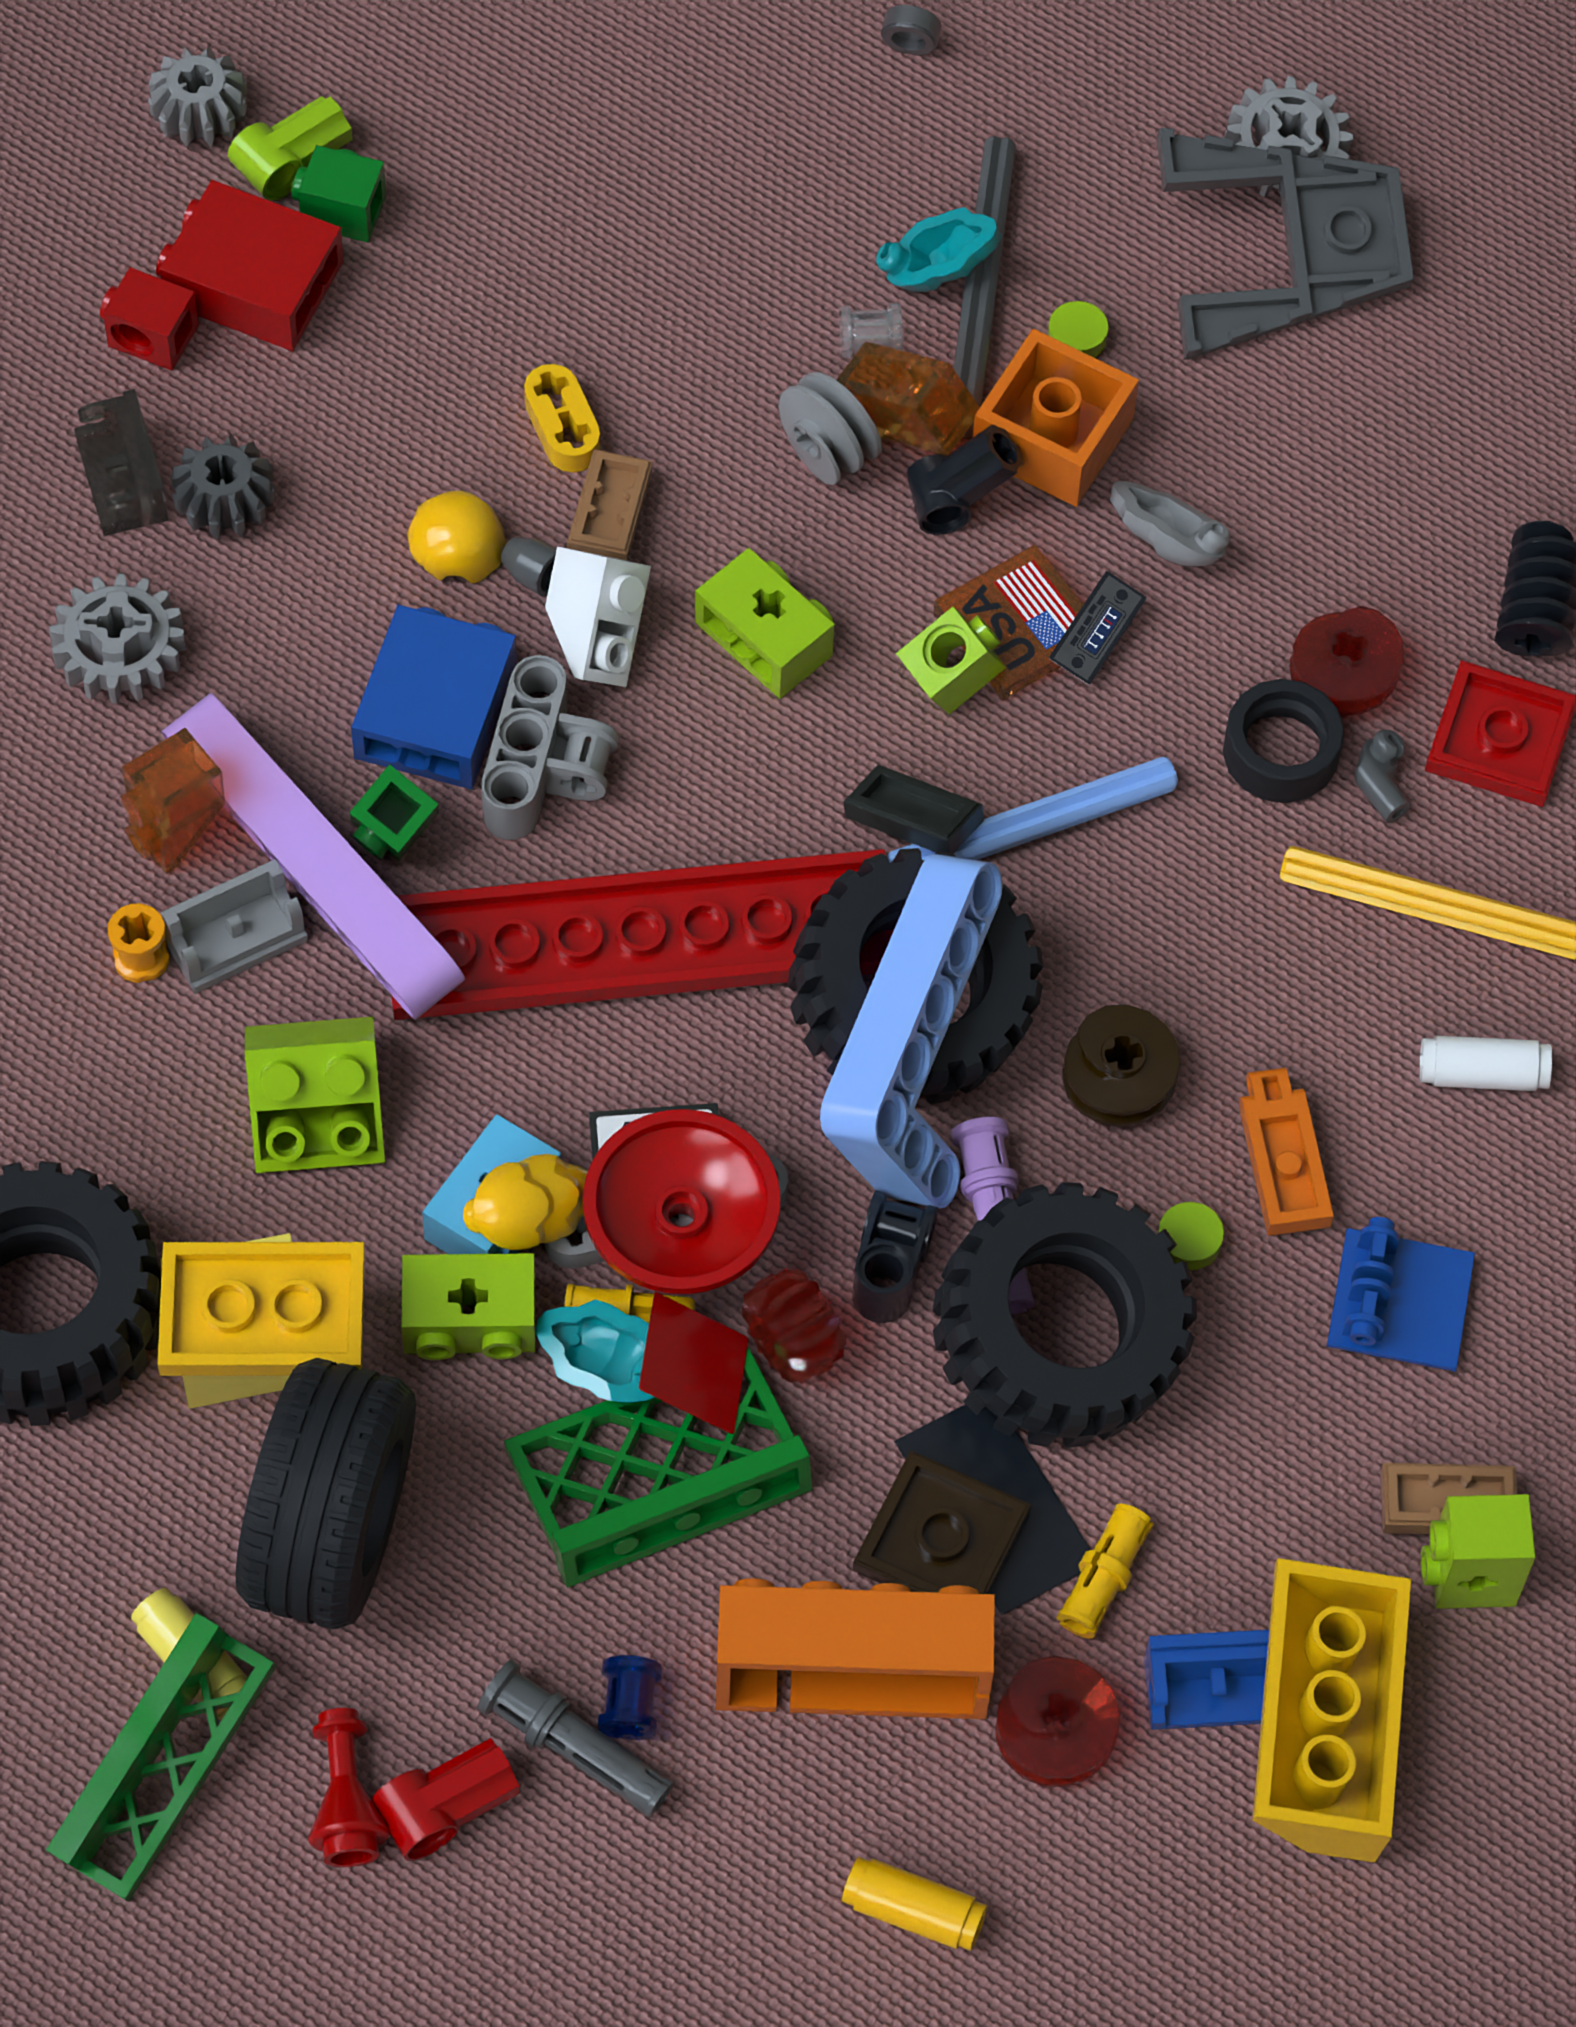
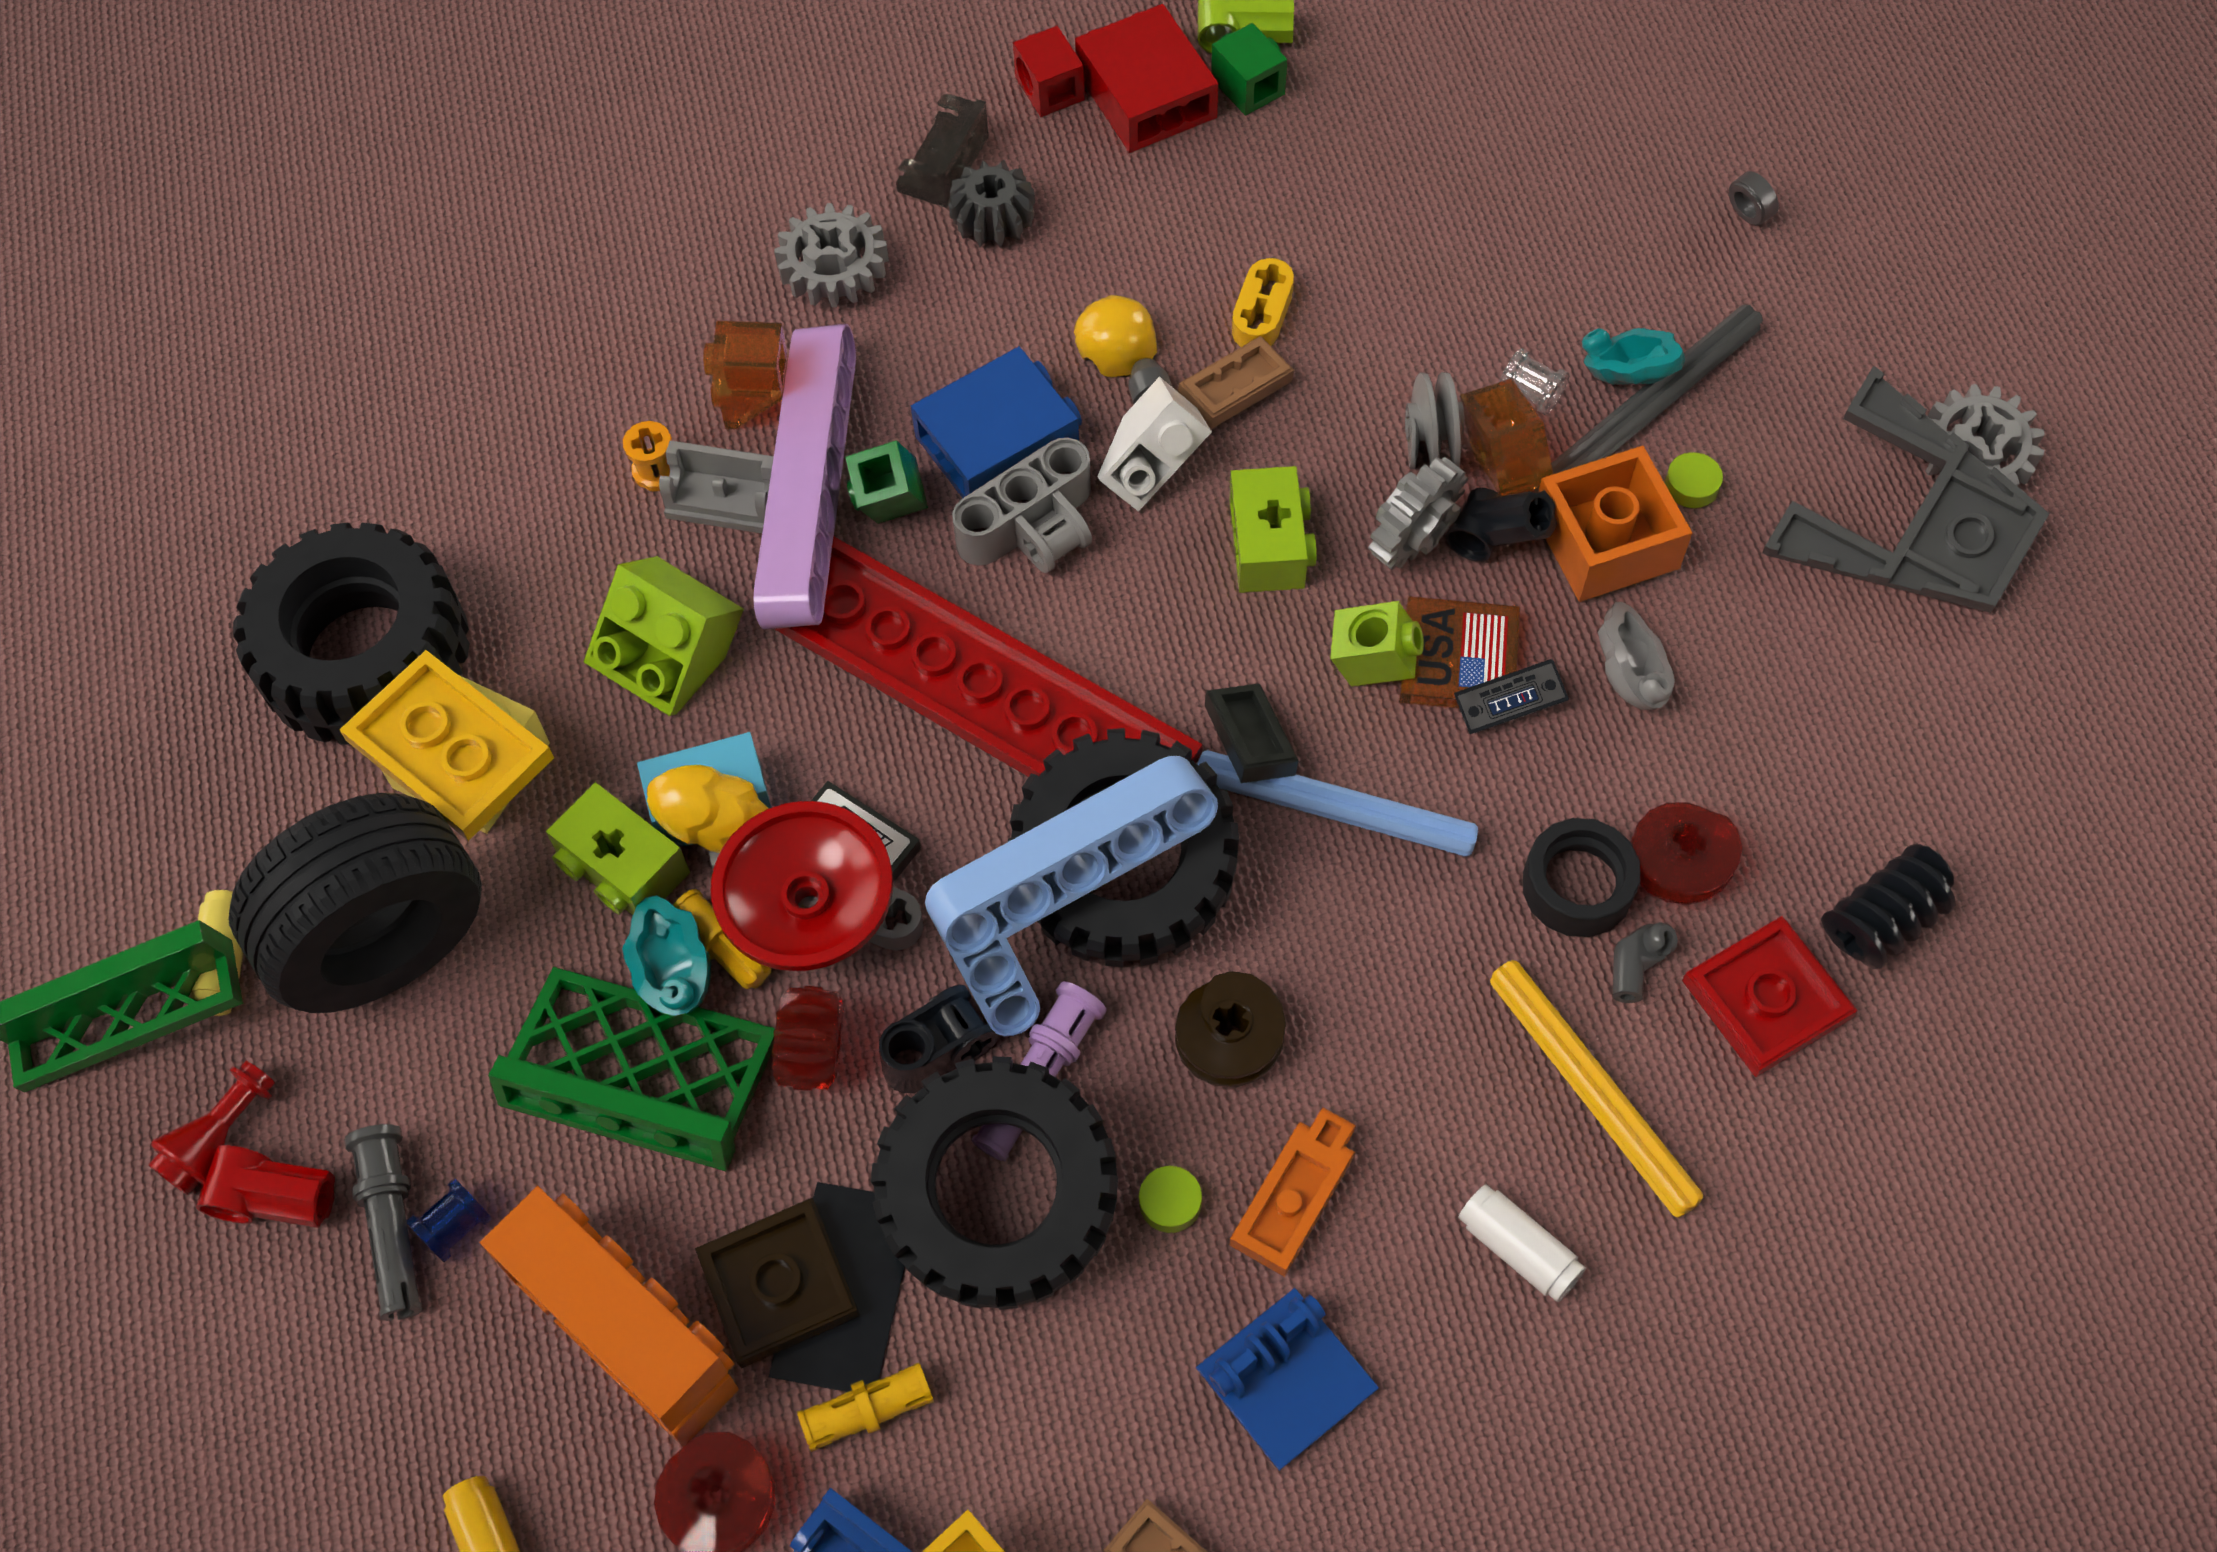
camera: 45 degrees right, 0 degrees up
(693, 1363) = (711, 1010): red sticker -> none
(892, 518) = (1418, 512): none -> light grey gear

